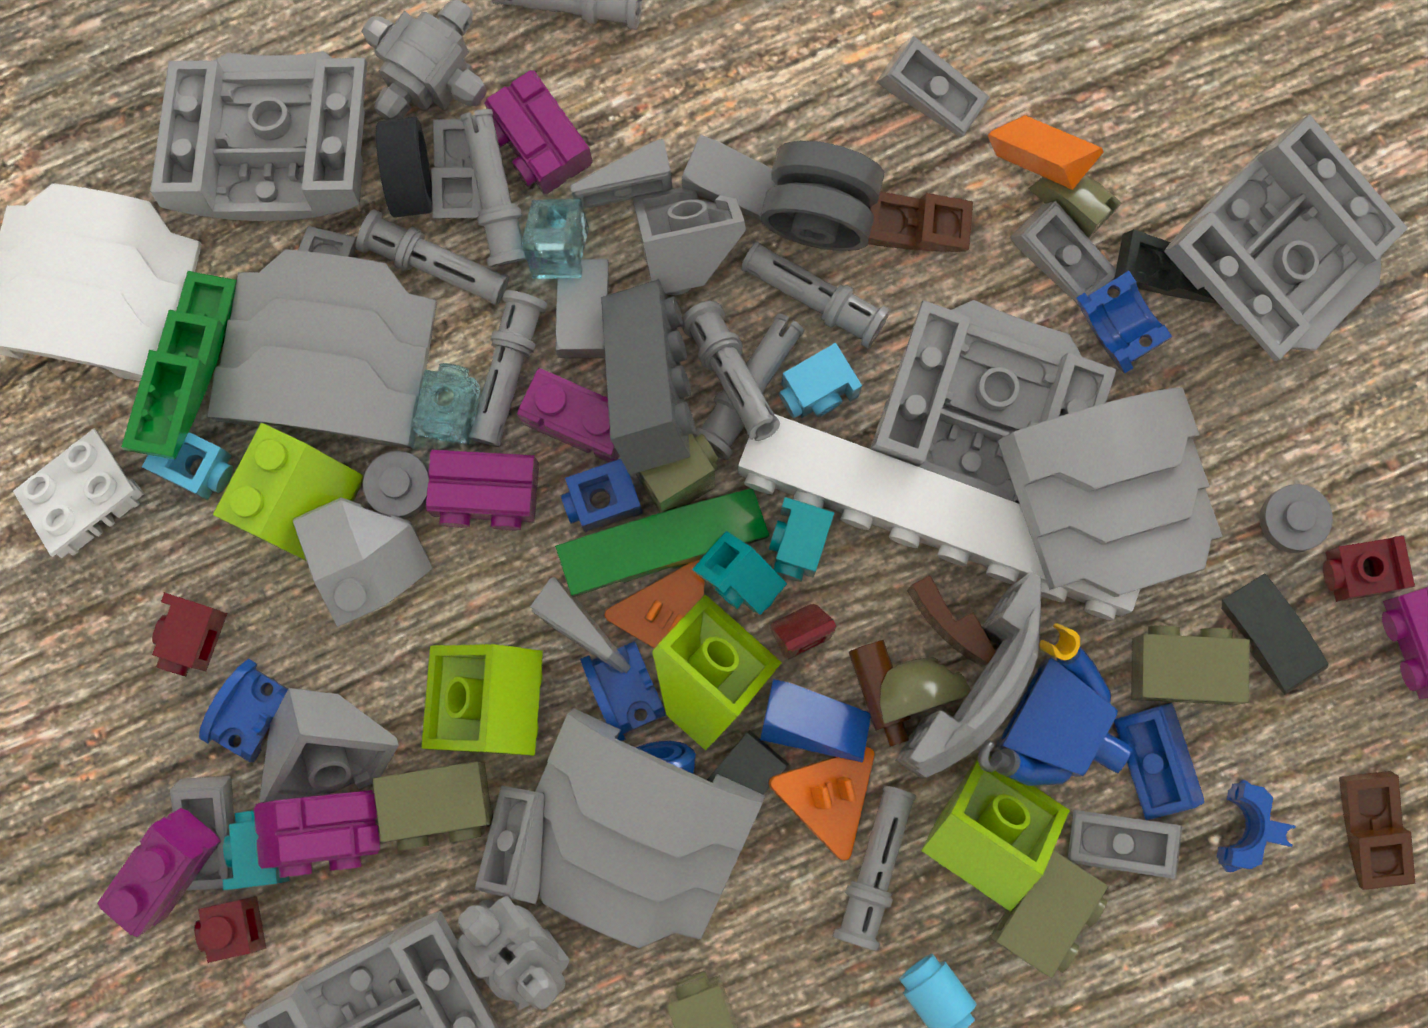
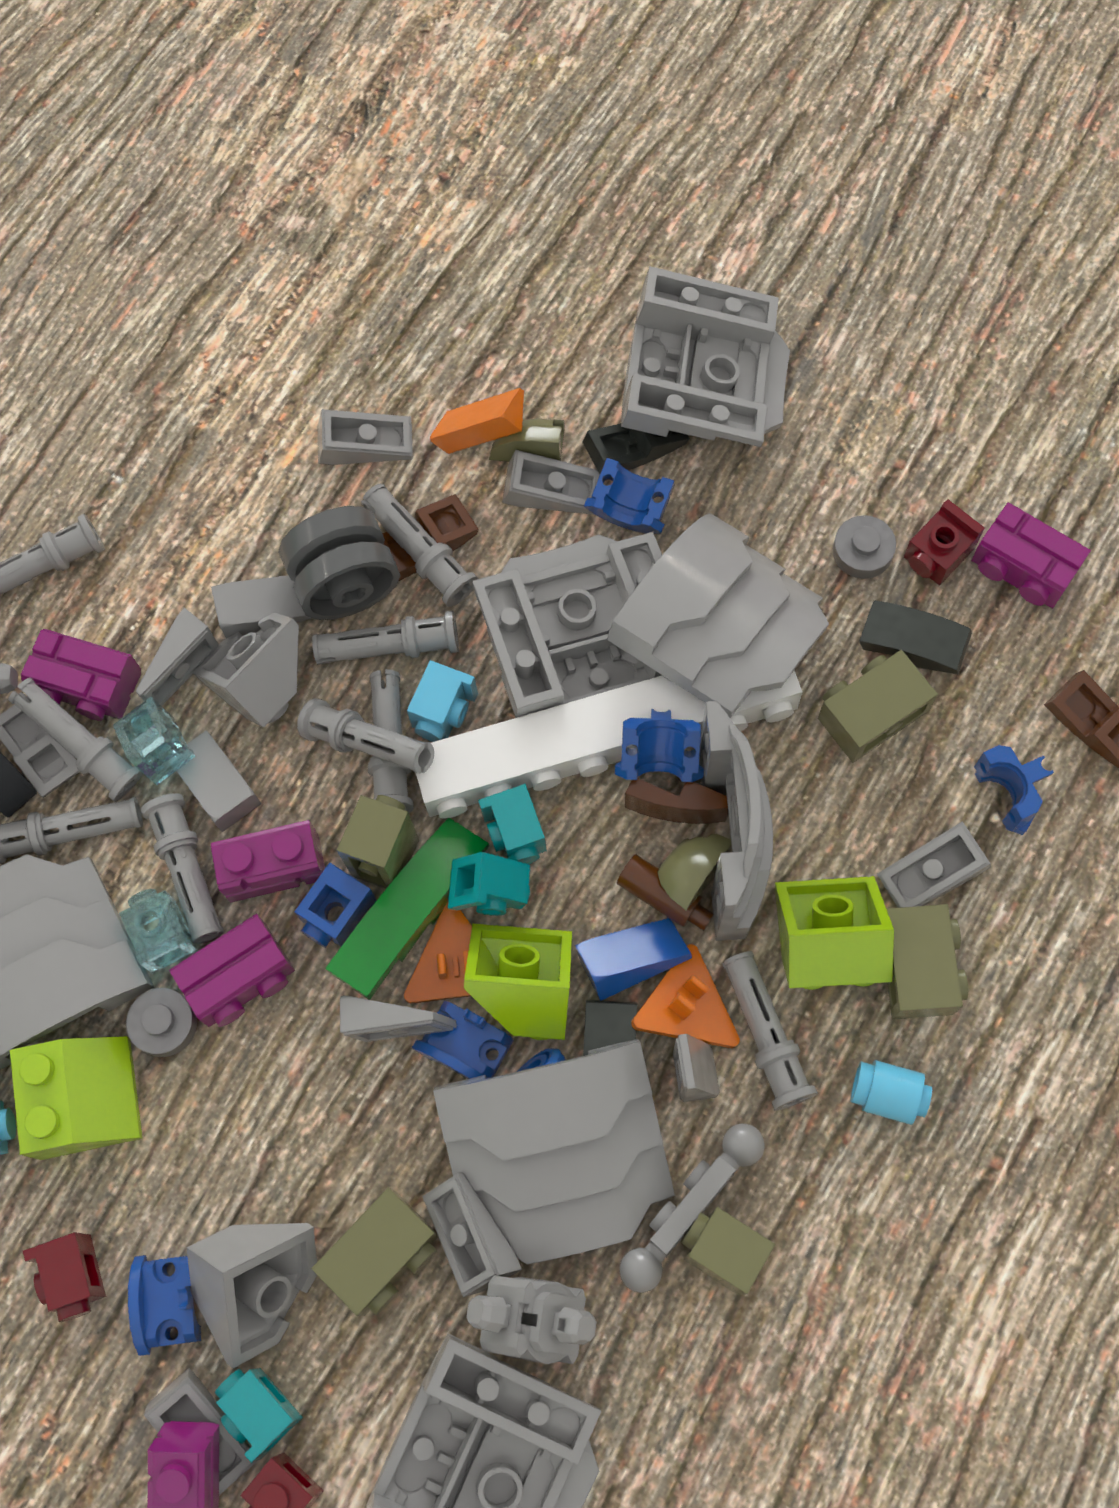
camera: 35 degrees left, 10 degrees down
(316, 830) = (294, 1348): magenta brick -> none
(359, 557) = (170, 1098): light grey slope -> none
(482, 699) = (355, 1138): lime slope -> none
(630, 976) = (642, 1267): none -> light grey plate
(646, 377) = (303, 784): dark grey brick -> none
(793, 857) = (695, 1069): none -> light grey slope
(802, 630) = (571, 892): dark red slope -> none
(907, 247) = (431, 558): none -> light grey pin
(972, 567) = (660, 747): none -> blue piece
(1059, 721) = (813, 812): blue torso -> none
(1160, 762) = (908, 791): blue slope -> none

